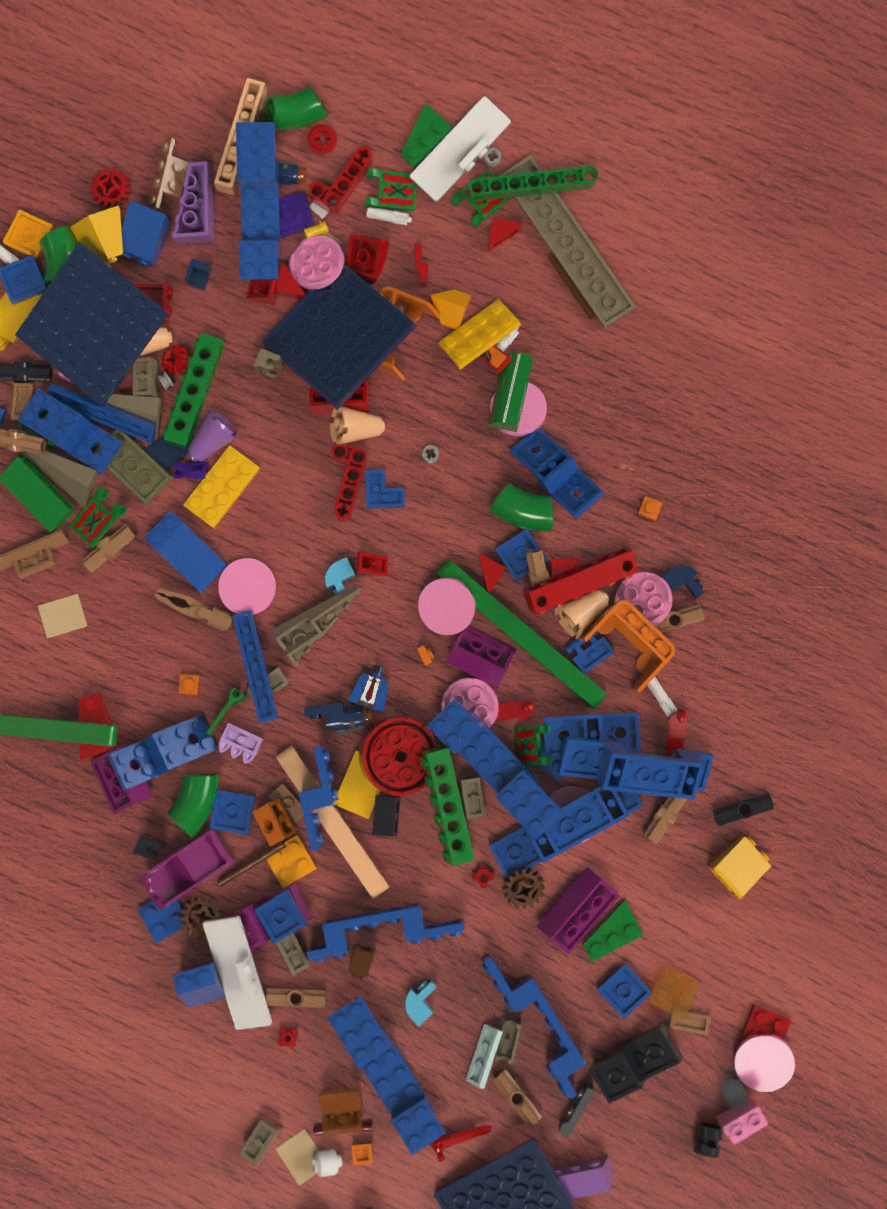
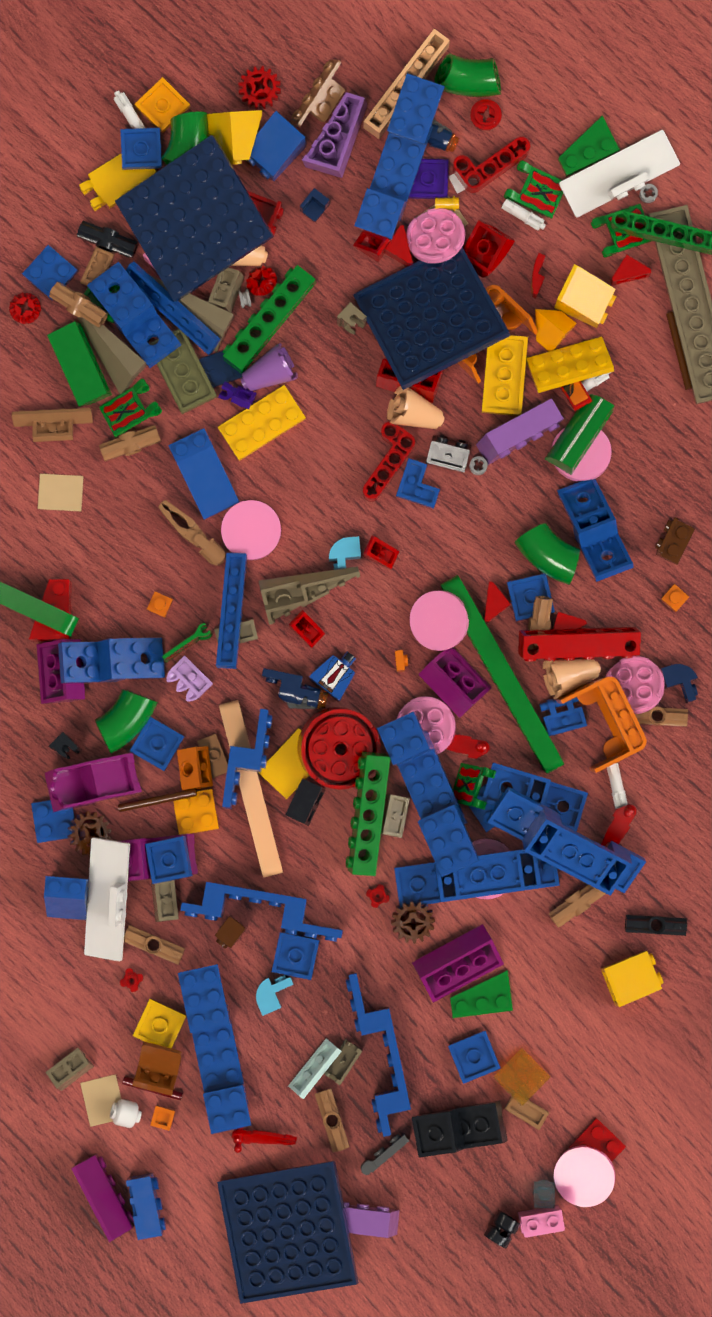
camera: 20 degrees right, 0 degrees up
(328, 1069) = (159, 1024): none -> yellow plate
(330, 658) = (306, 629): none -> red slope
(400, 452) = (448, 453): none -> bracket
(425, 365) = (505, 376): none -> yellow plate
(429, 960) = (295, 956): none -> blue plate
(456, 410) = (519, 431): none -> medium lavender wedge
(470, 268) = (585, 297): none -> yellow slope
(631, 457) = (675, 541): none -> reddish brown bracket

